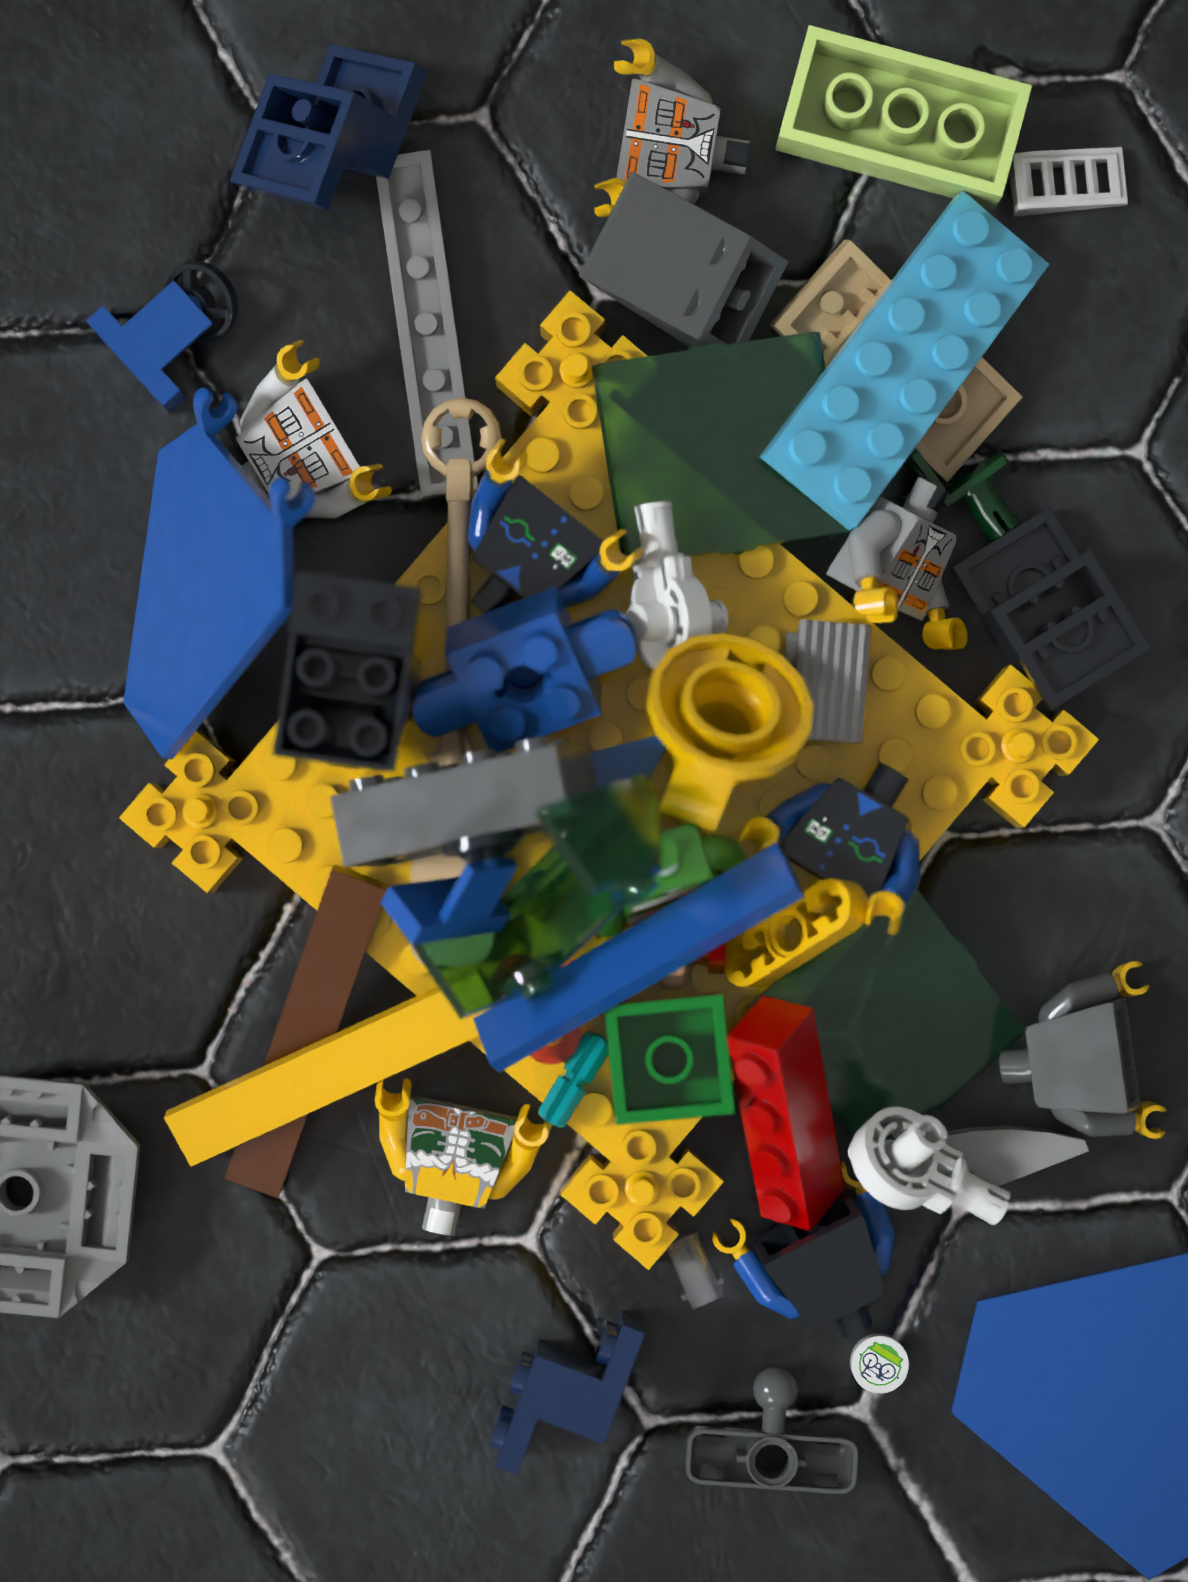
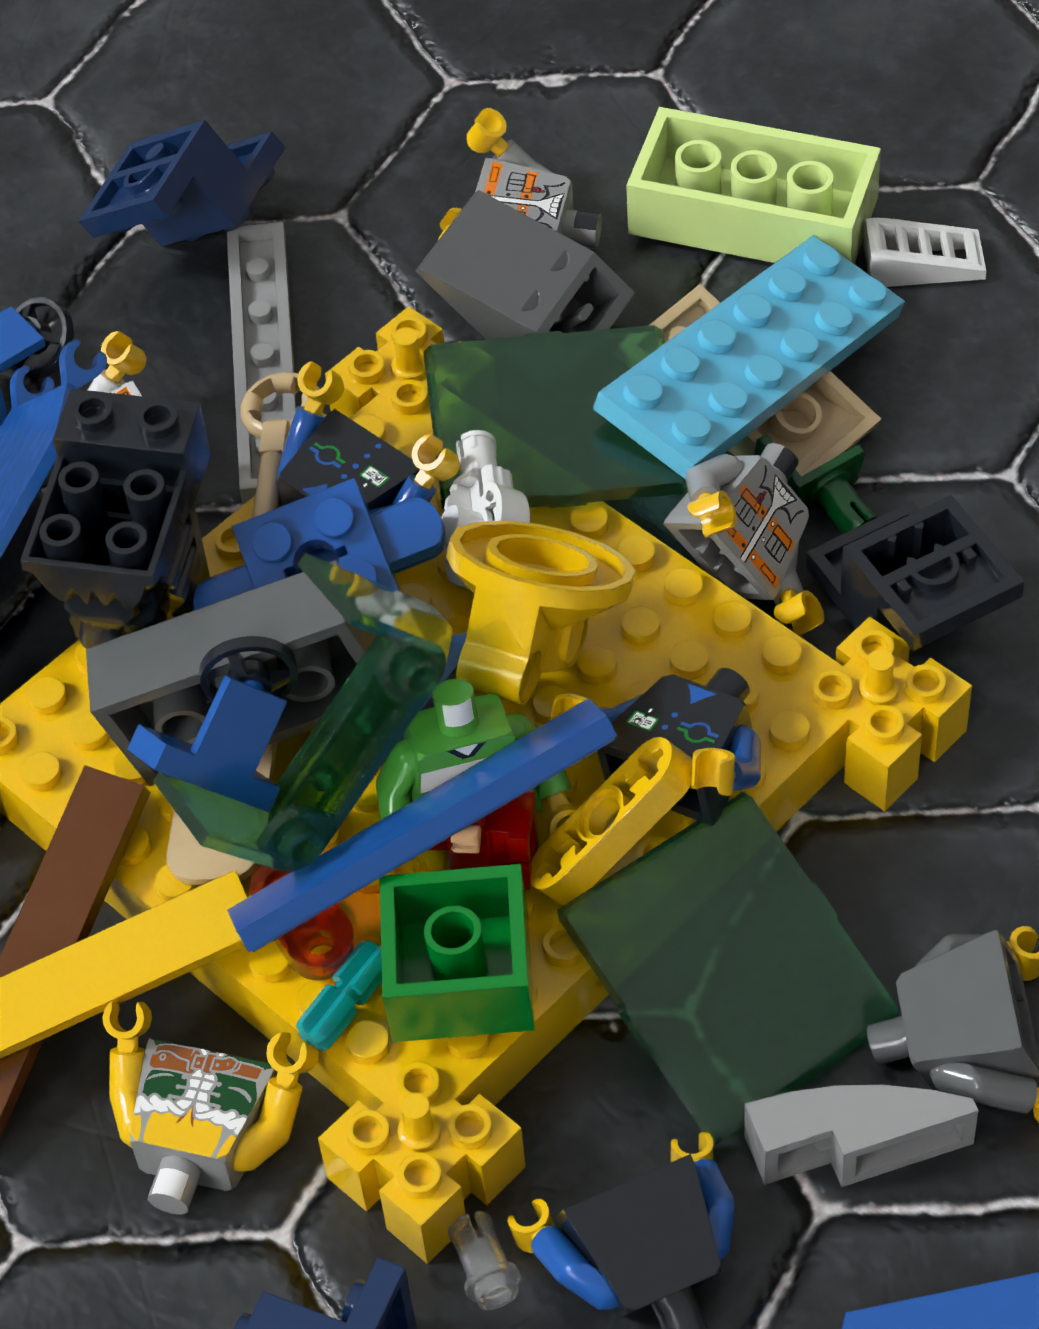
camera: 10 degrees right, 35 degrees down
(786, 1112) = (598, 1033): red brick -> none
(834, 668) = (665, 609): light grey brick -> none
(919, 1167) = (752, 1097): white pin -> none

